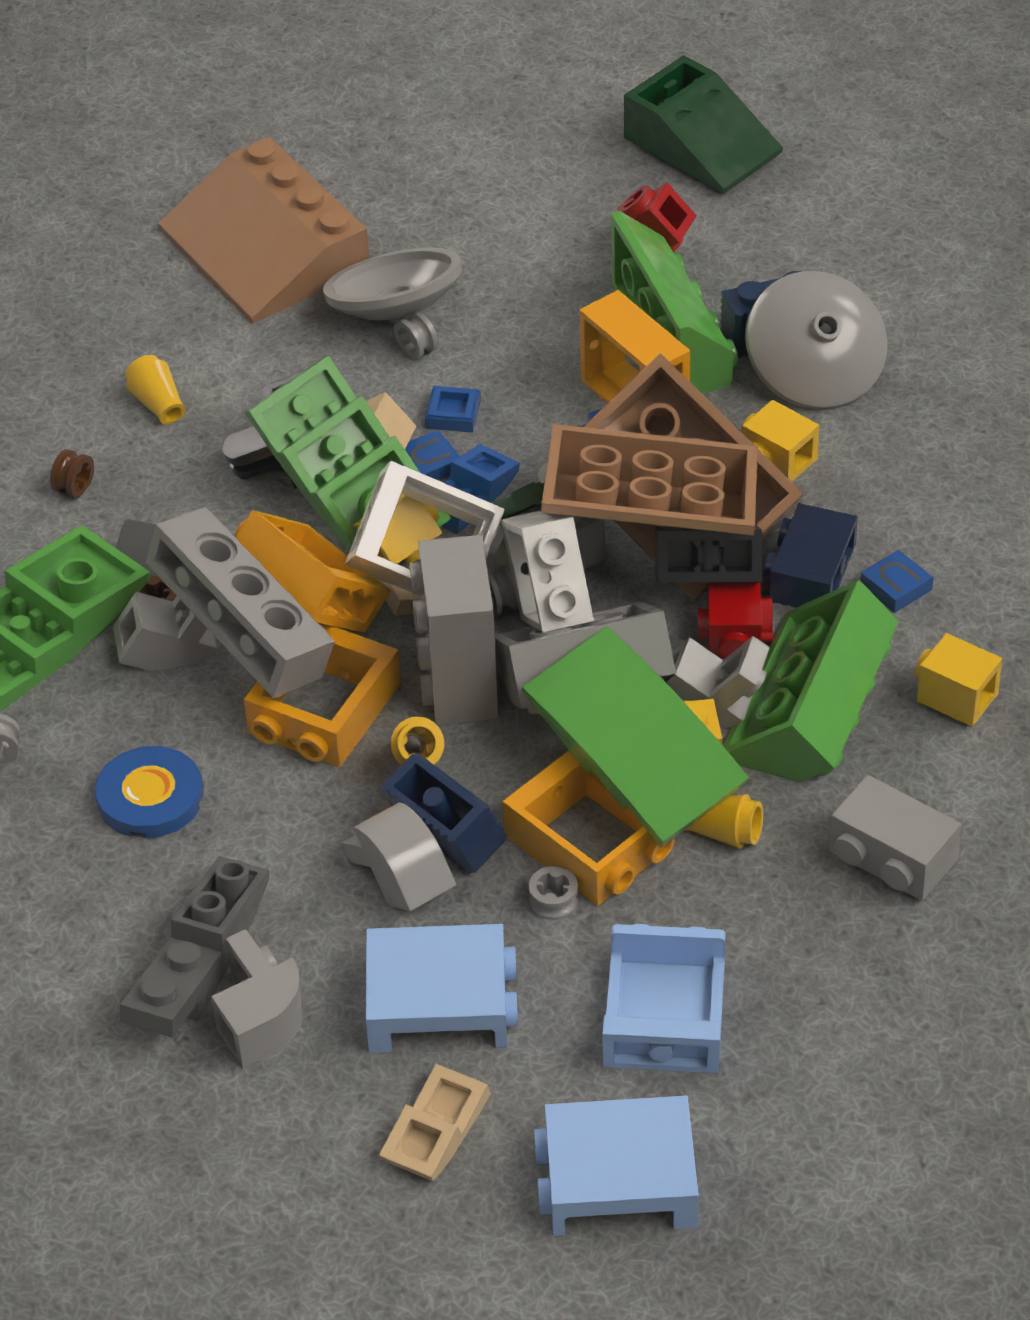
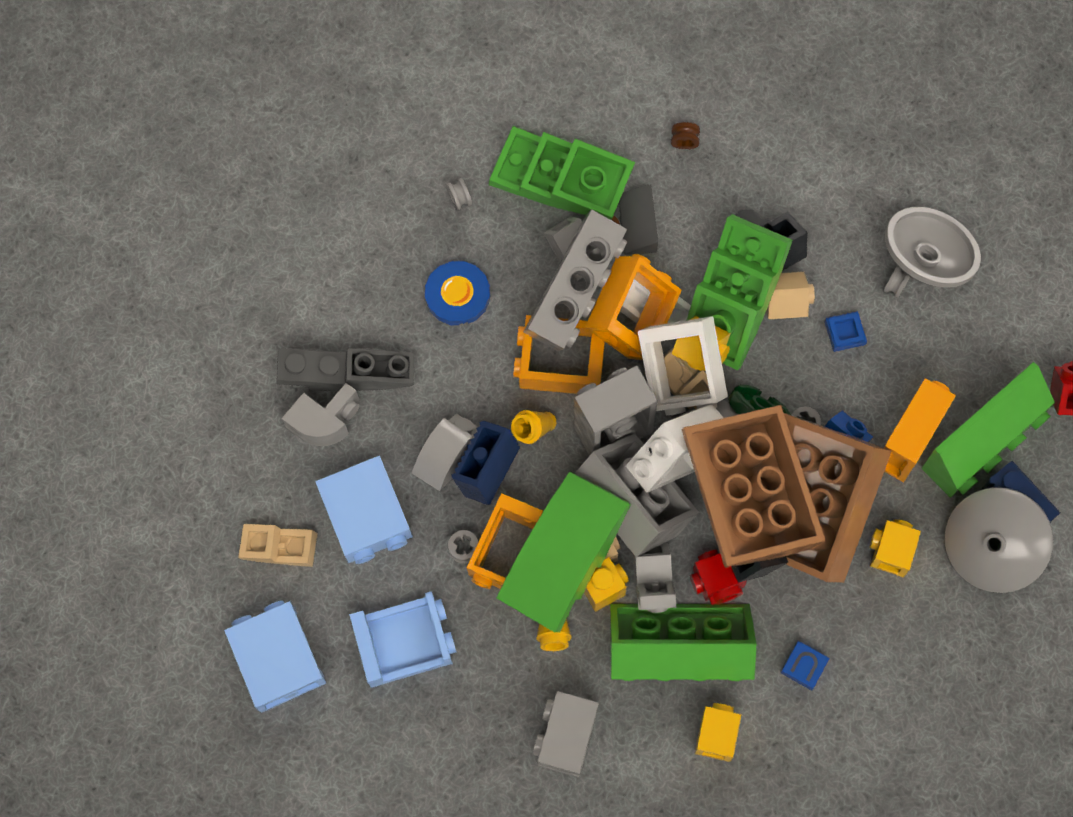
camera: 70 degrees right, 25 degrees up
(154, 387) = (780, 148): yellow cone -> none
(265, 231) = (953, 148): medium nougat slope -> none
(432, 455) = (793, 336): blue tile -> none
(481, 474) = (777, 371): blue slope -> none
(811, 555) = (796, 605): dark blue brick -> none

